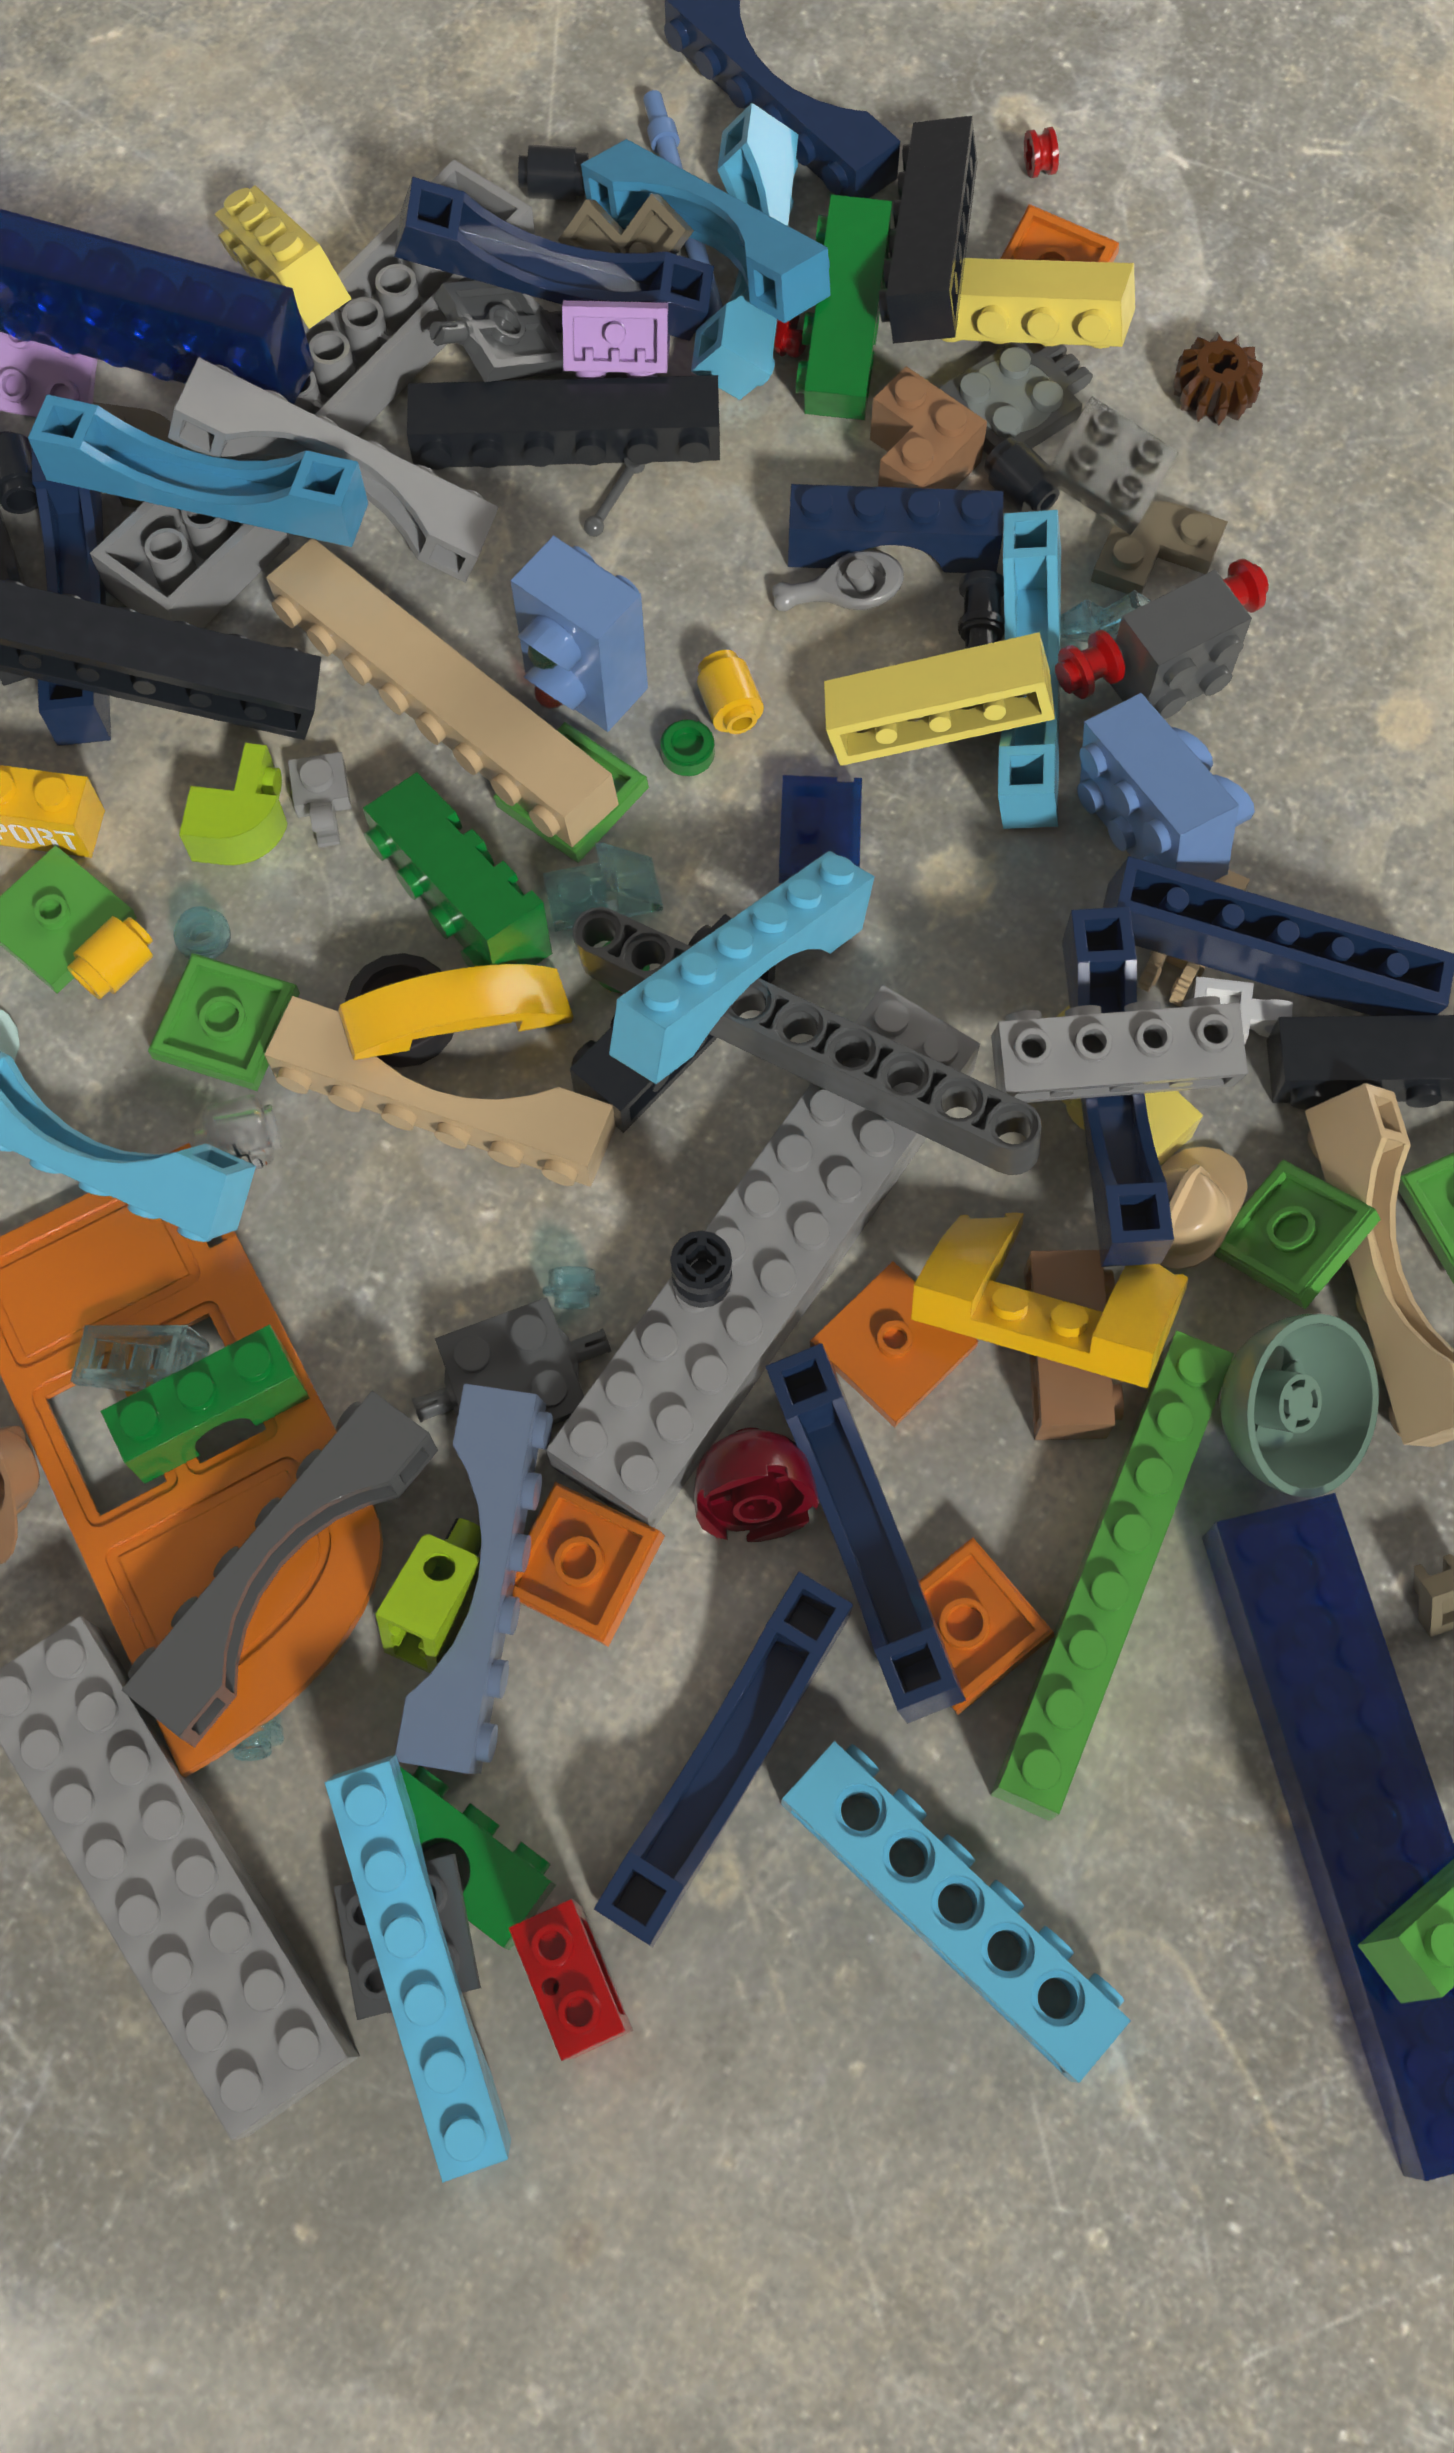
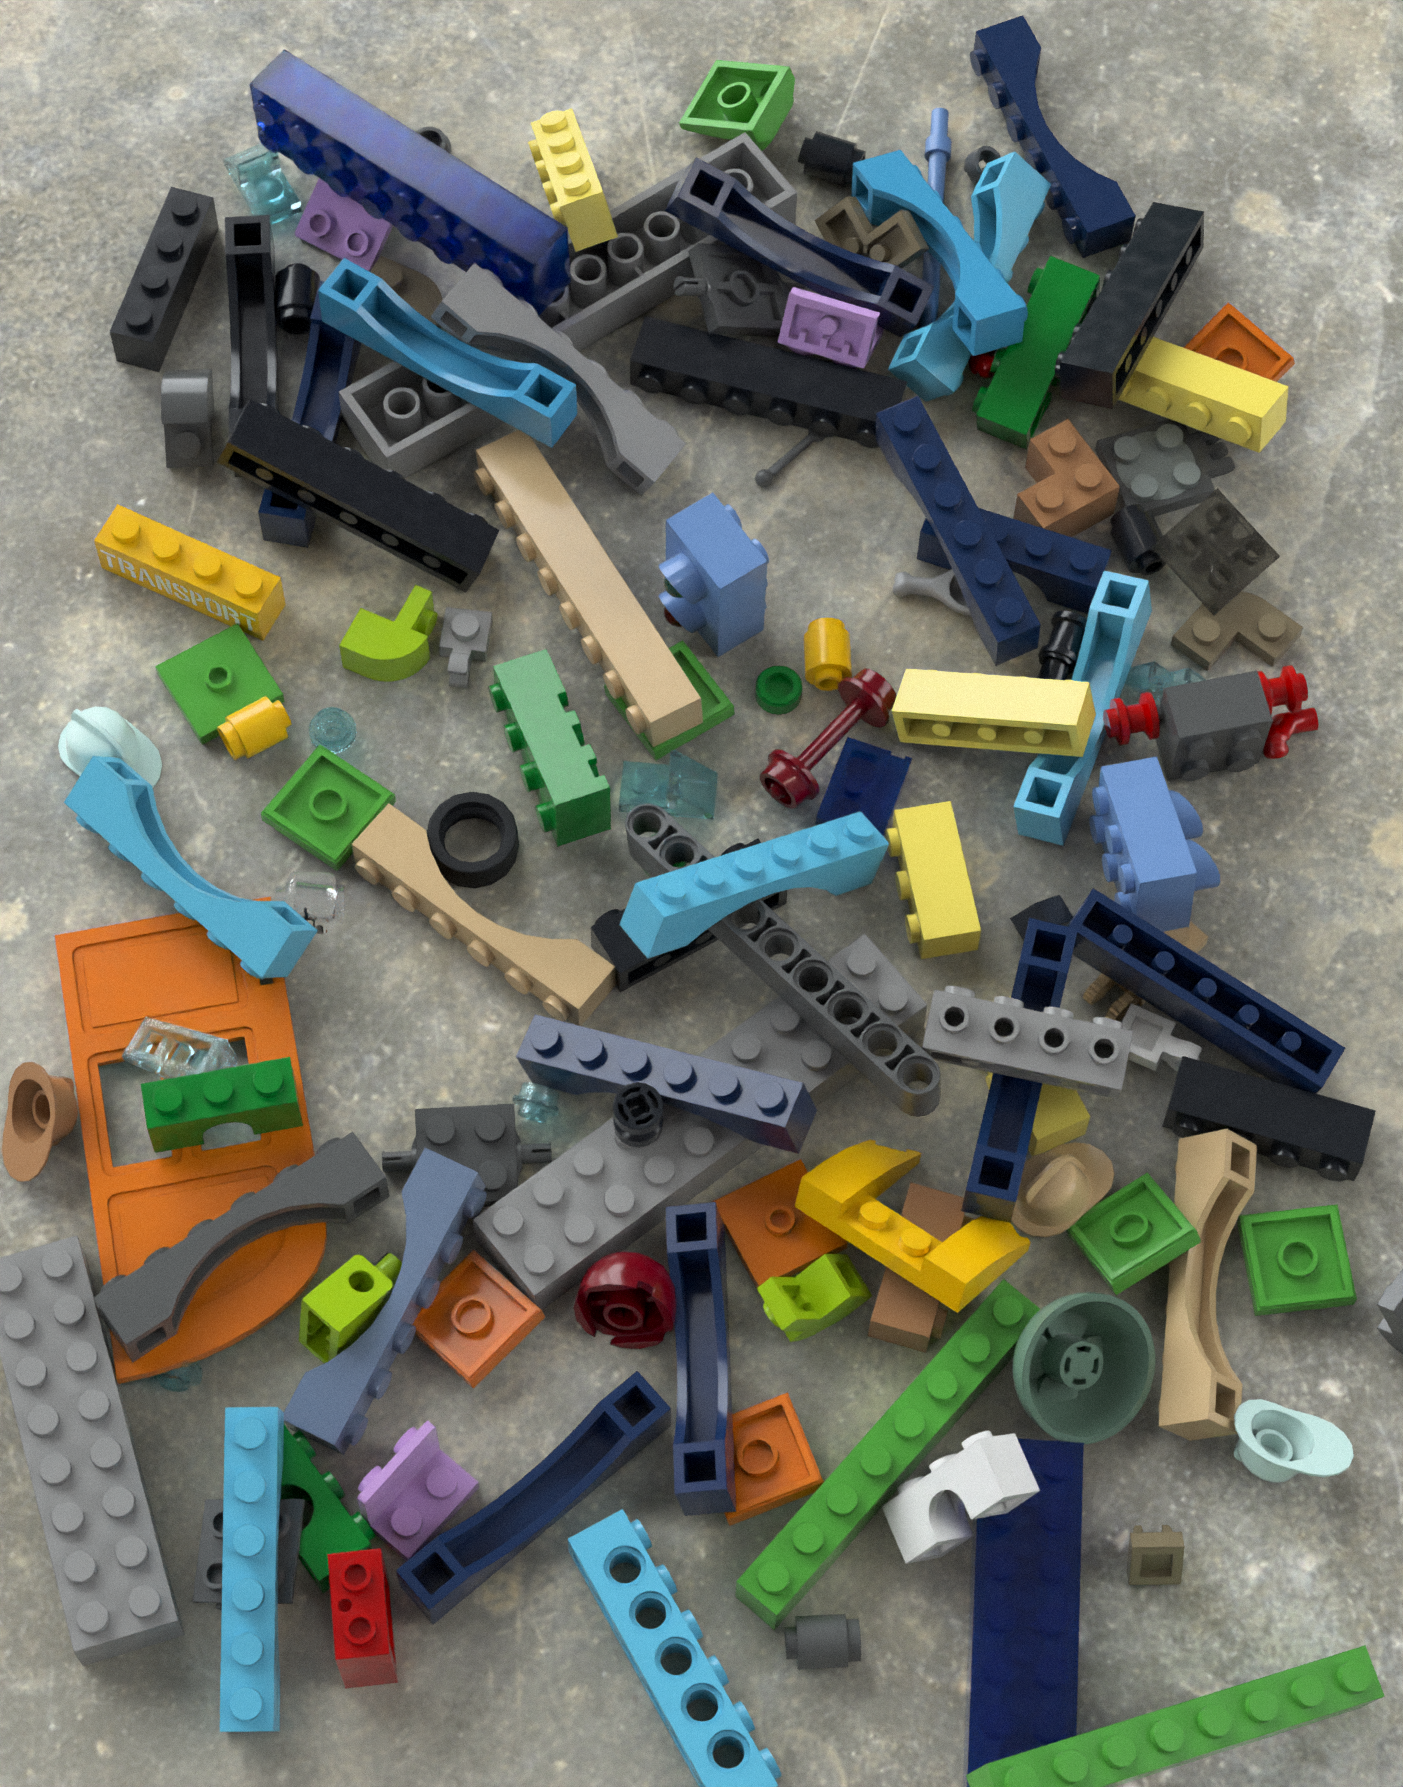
camera: 15 degrees right, 5 degrees down
(433, 132) = (741, 100): none -> bright green slope
(453, 1002) = (516, 846): yellow slope -> none
(582, 1799) = (414, 1492): none -> lavender bracket
(706, 139) = (971, 163): none -> dark grey hinge
(789, 728) = (789, 778): none -> dark red piece
(806, 1215) = (741, 1099): none -> arch
(889, 567) = (985, 578): none -> dark blue arch
(933, 904) = (933, 880): none -> light yellow brick
(965, 1415) = (814, 1297): none -> lime brick
(1041, 152) = (1260, 254): red bush -> none
(1054, 916) = (1048, 910): none -> black piece
(1116, 1820) = (823, 1641): none -> dark grey brick
(1218, 378) = (1340, 500): reddish brown gear -> none
(1254, 1575) = (984, 1477): none -> white arch
(1262, 622) = (1286, 725): none -> red arm

